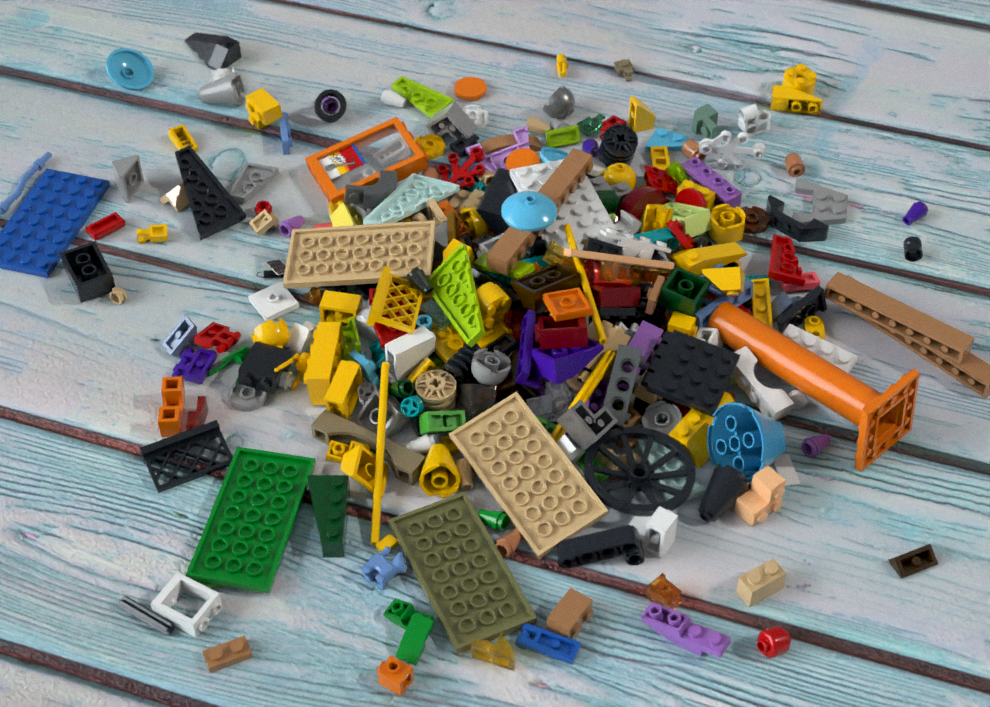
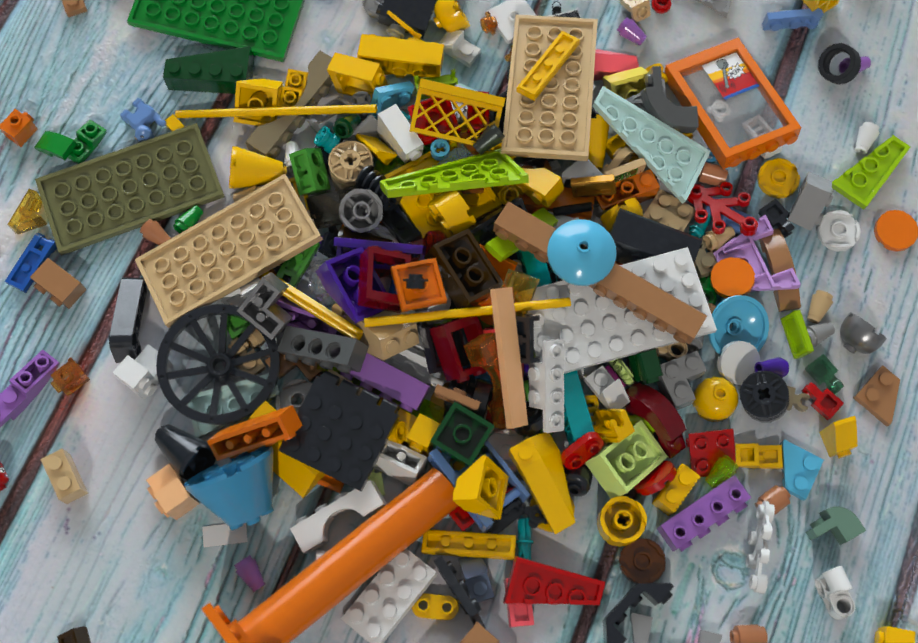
camera: 90 degrees right, 25 degrees up
(280, 313) = (489, 23): none -> clear orange plate
(339, 306) = (479, 70): yellow brick -> none
(342, 252) = (548, 65): none -> yellow tile
(570, 296) = (415, 281): none -> black plate
(602, 101) = (880, 395): none -> medium nougat wing
(703, 430) = (255, 433): none -> orange brick

